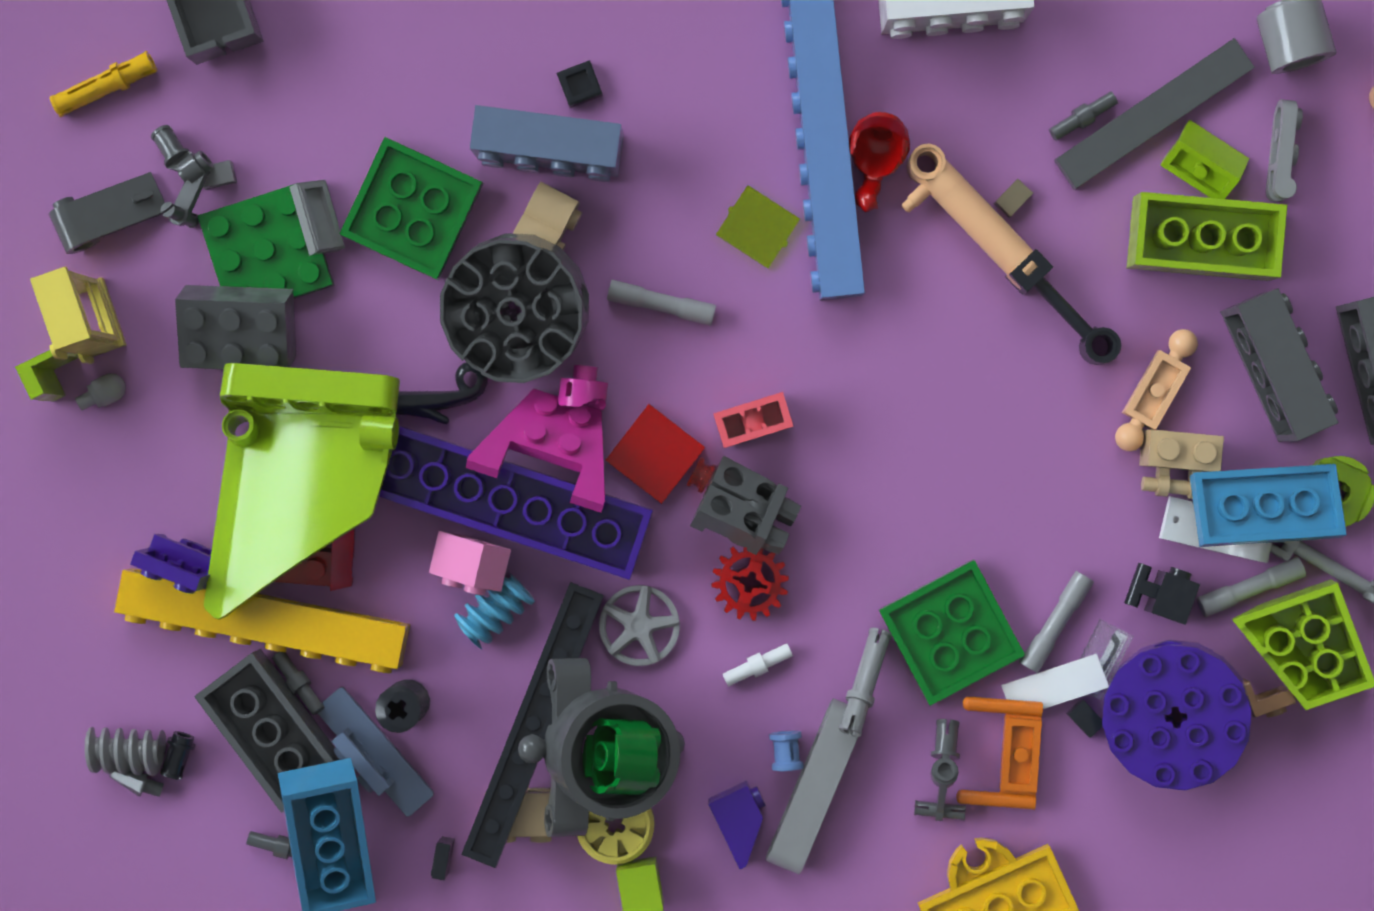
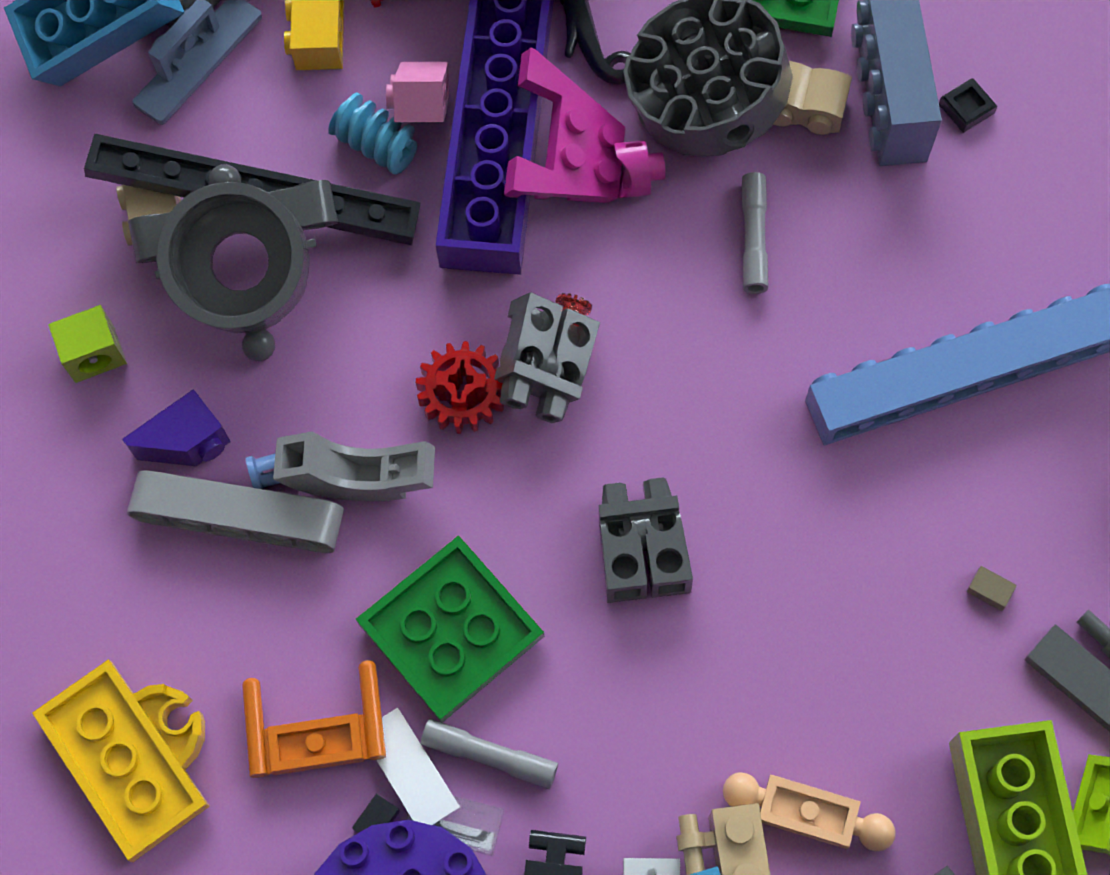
camera: 85 degrees right, 20 degrees down
(388, 704) = (251, 62): black piece -> none
(442, 858) = (80, 138): black tile -> none
(622, 756) = (230, 262): green brick -> none
(622, 844) = (134, 320): light yellow wheel -> none
(639, 625) = (387, 286): light grey wheel -> none
(655, 453) = (584, 261): red tile -> none
(753, 420) = (648, 345): coral brick -> none
(757, 226) = (869, 316): clear neon green piece -> none
(757, 664) = (365, 417): white bar -> none
(806, 683) = (352, 473): none -> light grey arch
(860, 696) = (355, 531): light grey pin -> none
(877, 148) = (999, 414): red piece -> none
(906, 461) = (642, 526): none -> dark grey hips
(943, 774) = (274, 650): dark grey pin -> none
(1002, 244) = (932, 581): light nougat piece -> none

